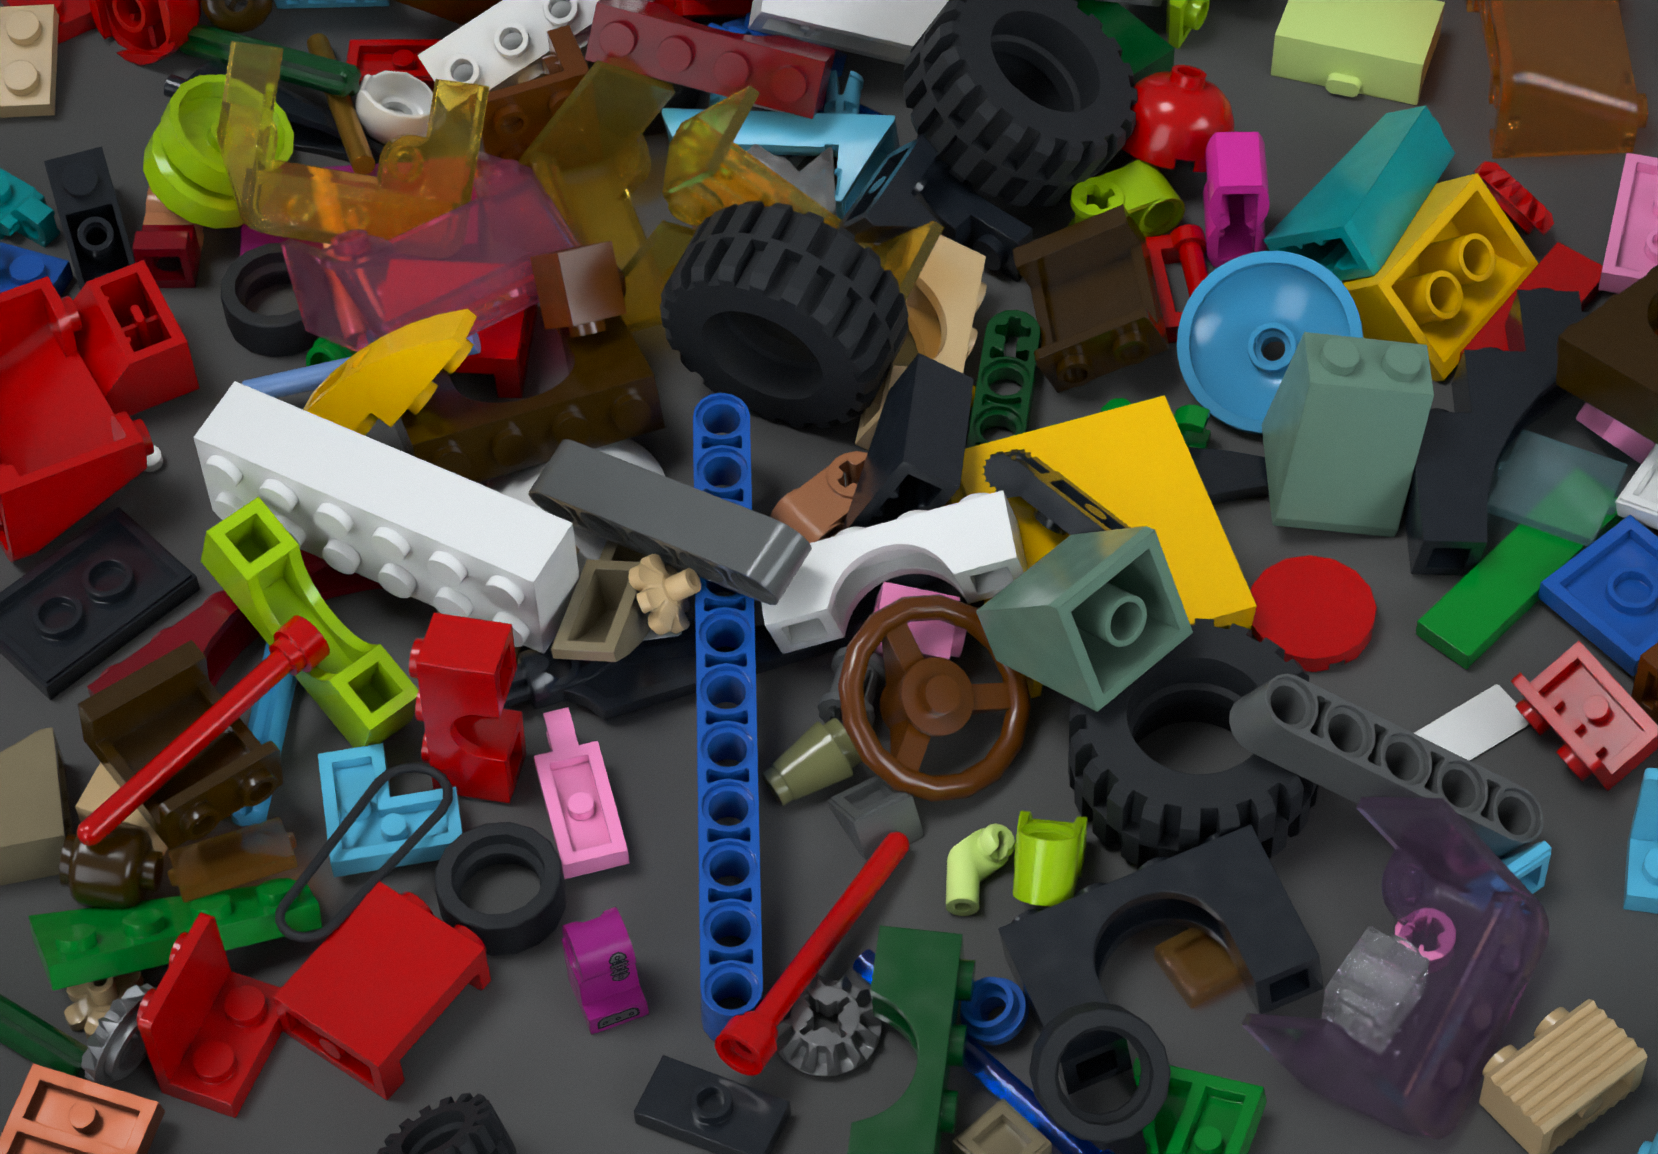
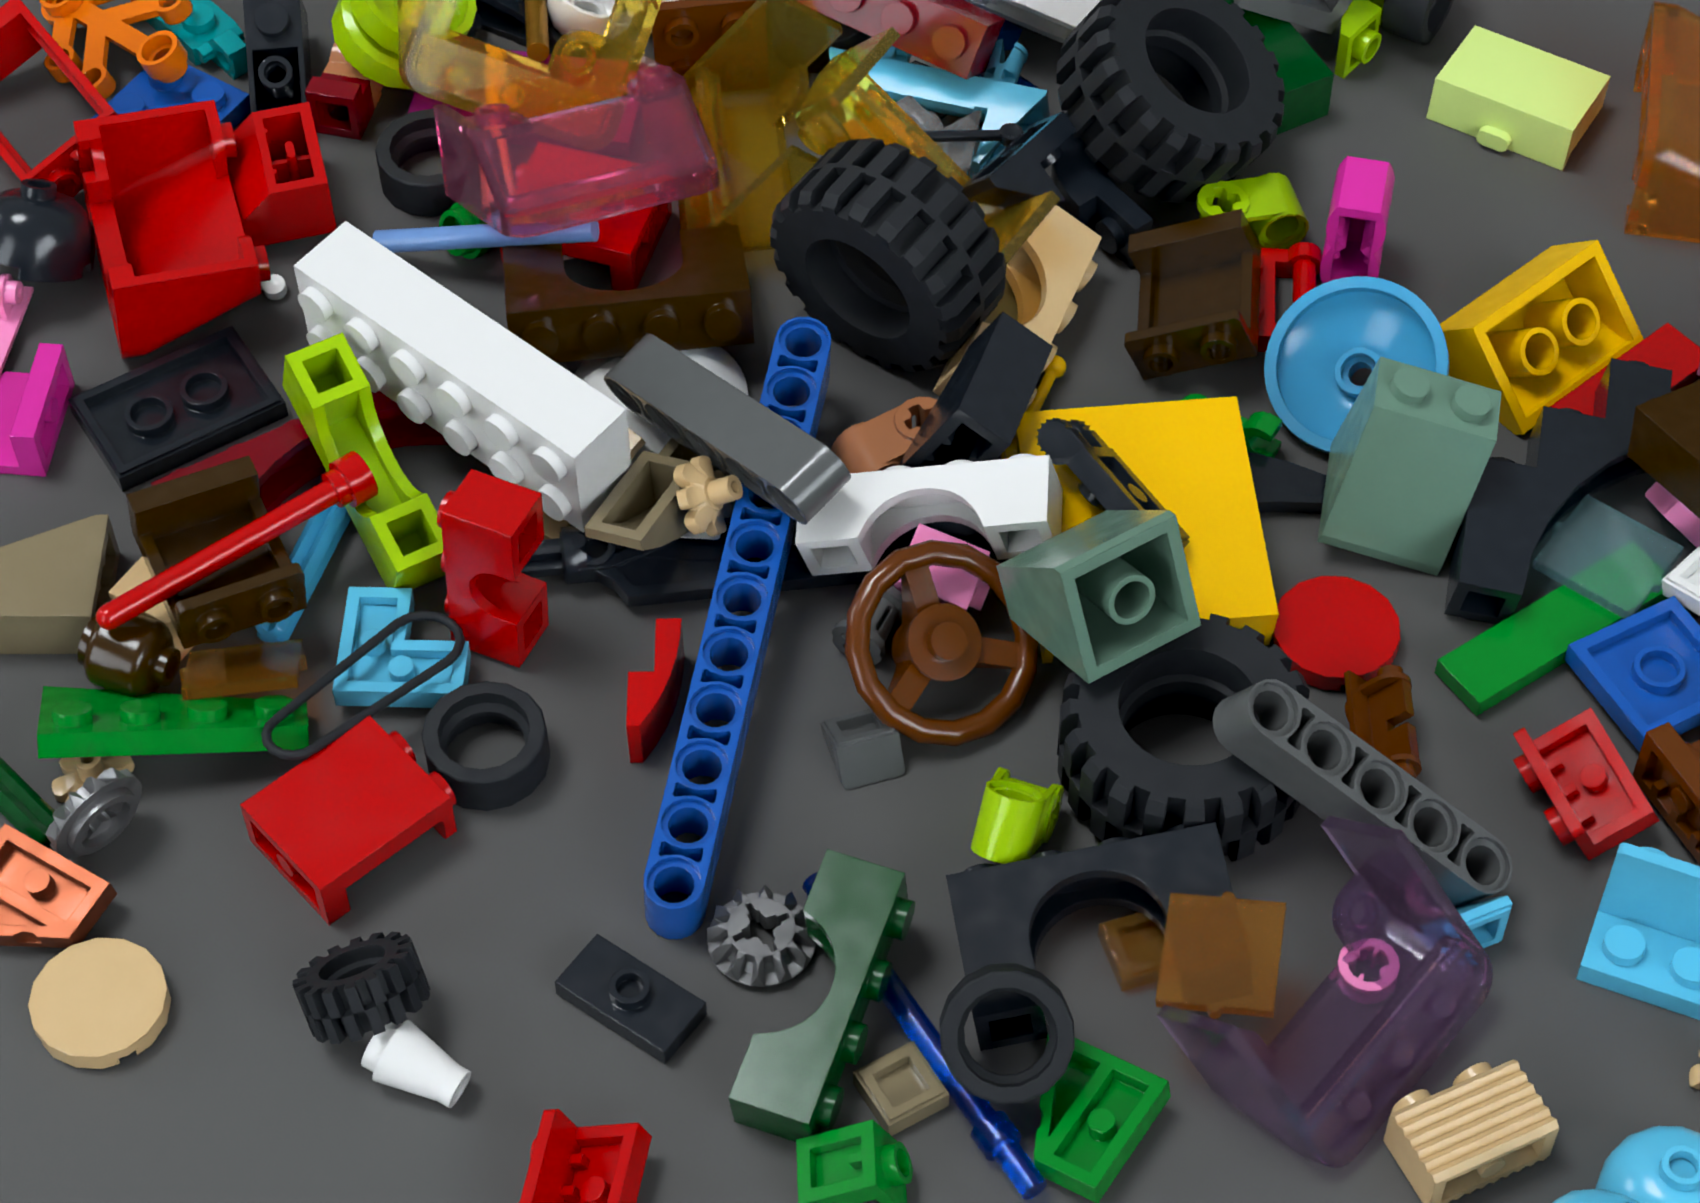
camera: 10 degrees right, 0 degrees up
(207, 1024) = (174, 817): red bracket -> none
(393, 372) = (503, 244): yellow slope -> none
(579, 287) = (702, 196): reddish brown brick -> none
(579, 800) = (582, 677): bright pink plate -> none
(603, 971) = (559, 842): magenta leg -> none
(656, 801) = (655, 693): none -> red slope
(751, 1038) = (679, 934): red piece -> none
(812, 763) = (812, 684): olive cone -> none
(864, 169) = (1005, 135): none -> black hinge
(972, 862) = (941, 809): yellowish green arm -> none
(987, 995) = (920, 940): blue plate -> none
(1007, 410) = (1098, 387): dark green beam -> none
(1177, 117) = (1317, 136): red cylinder -> none
(1290, 953) = (1221, 955): none -> clear orange piece
(1368, 196) = (1488, 245): teal slope -> none
(1374, 679) = (1376, 709): none -> reddish brown hinge
(1376, 988) = (1311, 1007): clear brick -> none
(1476, 724) = (1472, 771): white sticker -> none
(1515, 199) = (1632, 273): red gear -> none

